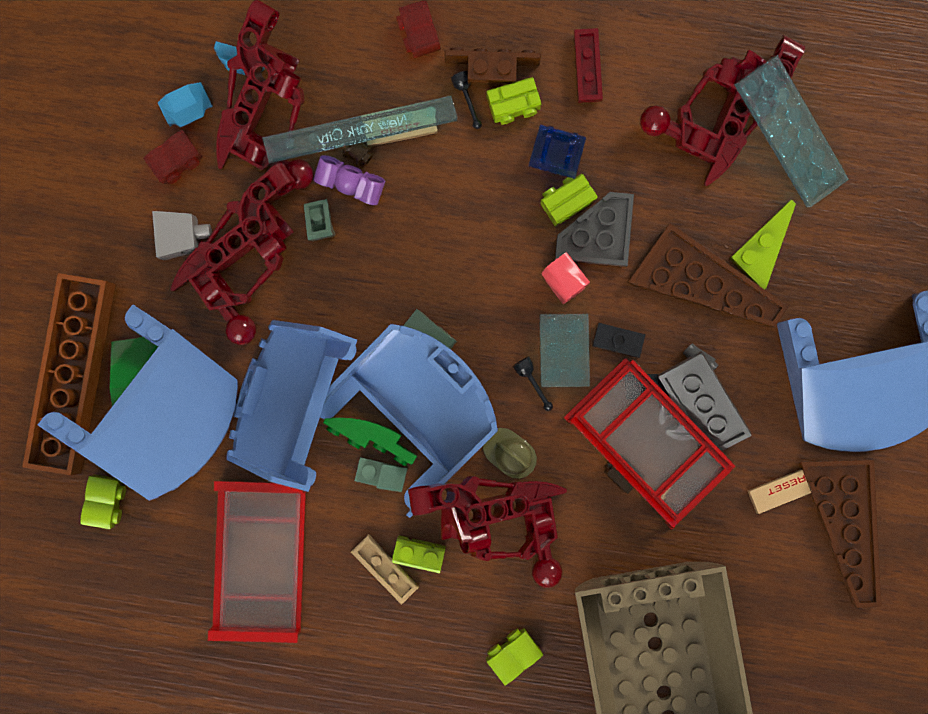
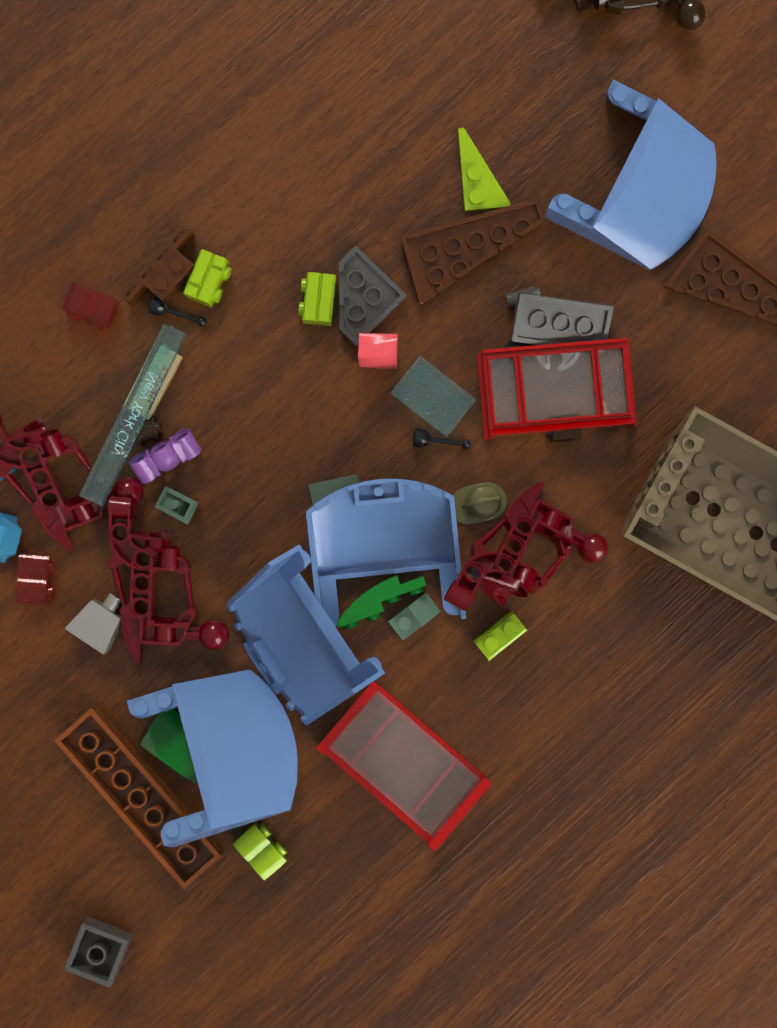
camera: 55 degrees left, 0 degrees up
(380, 565) = (490, 672): tan tile -> none
(513, 656) = (636, 625): lime brick -> none
(557, 151) = (274, 277): clear blue plate -> none
(588, 65) = (226, 199): dark red plate -> none
(618, 340) = (459, 348): black plate -> none
(718, 146) = (370, 150): dark red piece -> none
(779, 491) = (674, 320): tan tile -> none
(791, 131) = (406, 86): clear light blue plate -> none

